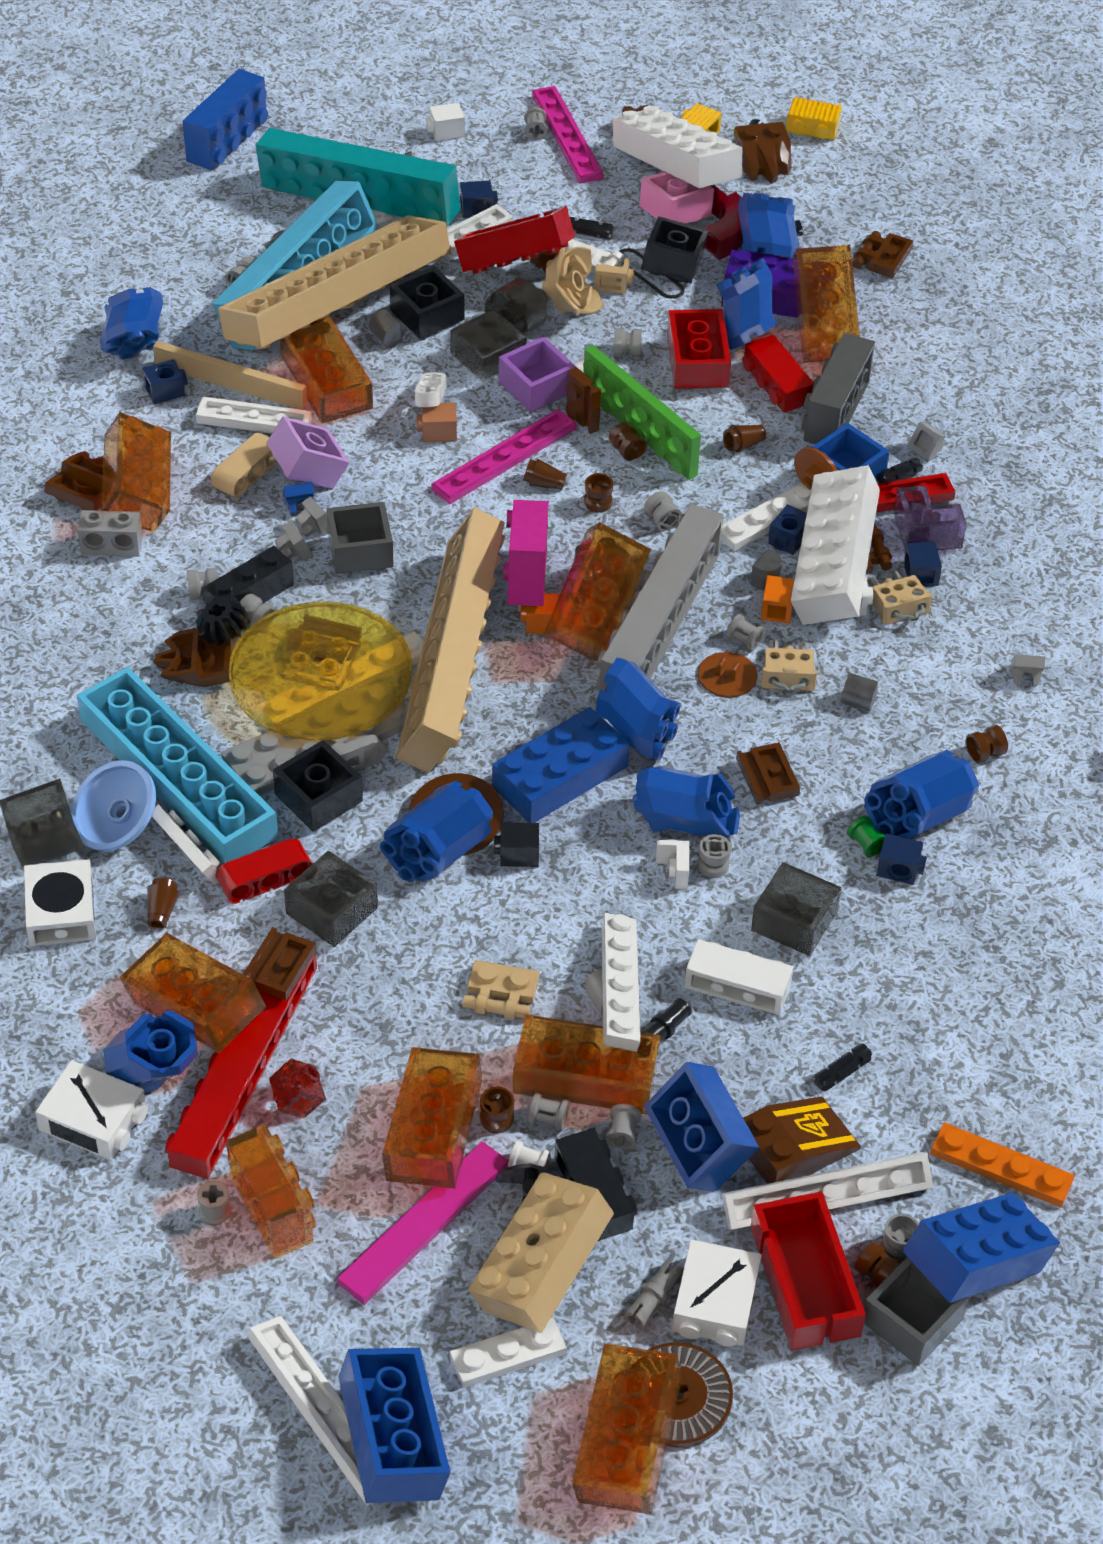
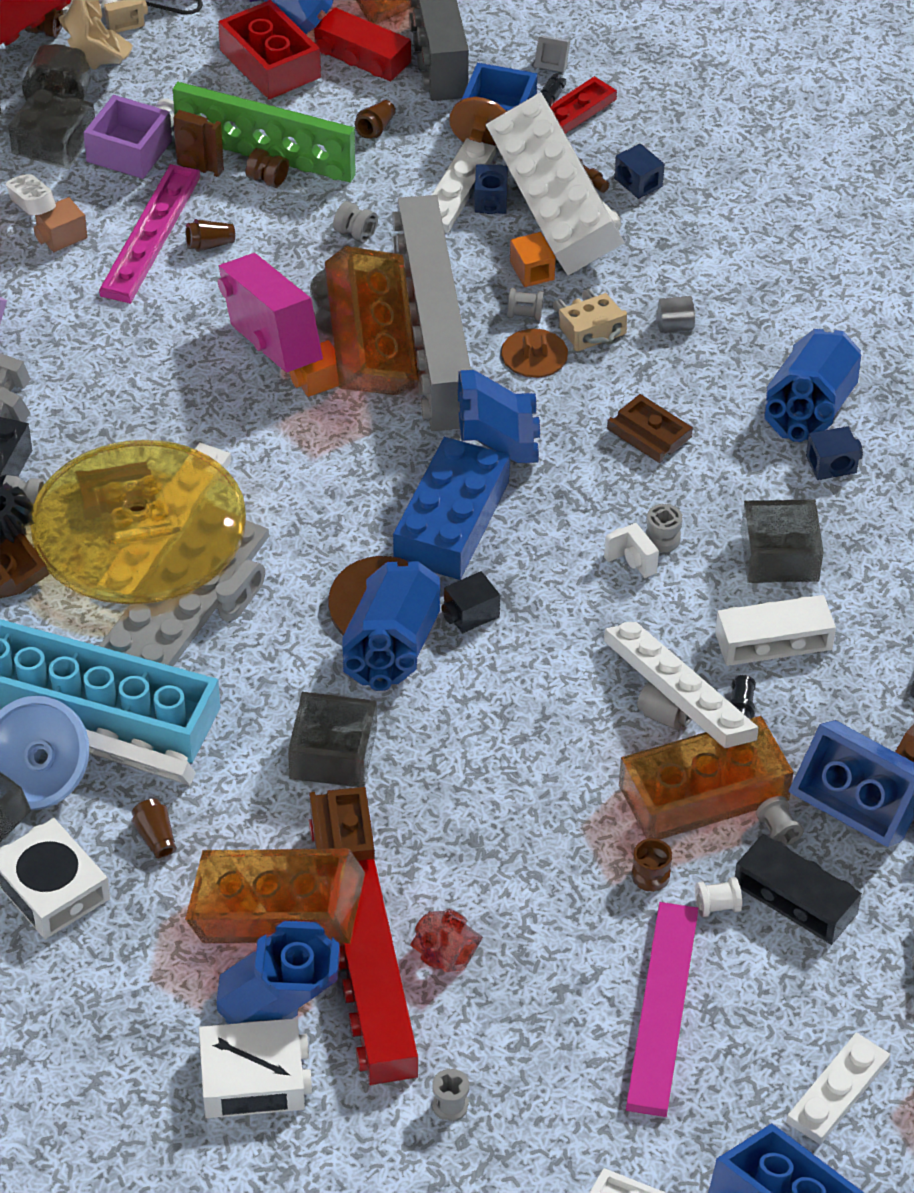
camera: 30 degrees left, 0 degrees up
(263, 870) = (236, 745): red beam -> none
(271, 1190) = (505, 1051): clear orange brick -> none
(318, 785) = (229, 635): black brick -> none
(360, 537) = (75, 371): dark grey piece -> none
(432, 1117) = (605, 901): clear orange brick -> none
(451, 642) = (256, 433): tan brick -> none
(501, 982) = (557, 742): tan plate -> none
(523, 1174) = (744, 917): black shield -> none
(541, 1251) = (811, 973): tan brick -> none
(549, 1111) = (709, 838): light grey bush -> none
(598, 492) = (278, 229): reddish brown wheel -> none
(627, 342) = (191, 70): light grey wheel -> none
(686, 802) = (602, 488): blue brick -> none
(766, 565) = (500, 232): flat silver brick -> none
(866, 835) = (786, 445): green bush -> none
(900, 598) = (643, 211): tan piece -> none
(922, 522) = (613, 130): clear purple brick -> none
(988, 743) = (829, 308): reddish brown wheel -> none
(1027, 665) = (807, 224): light grey tile -> none

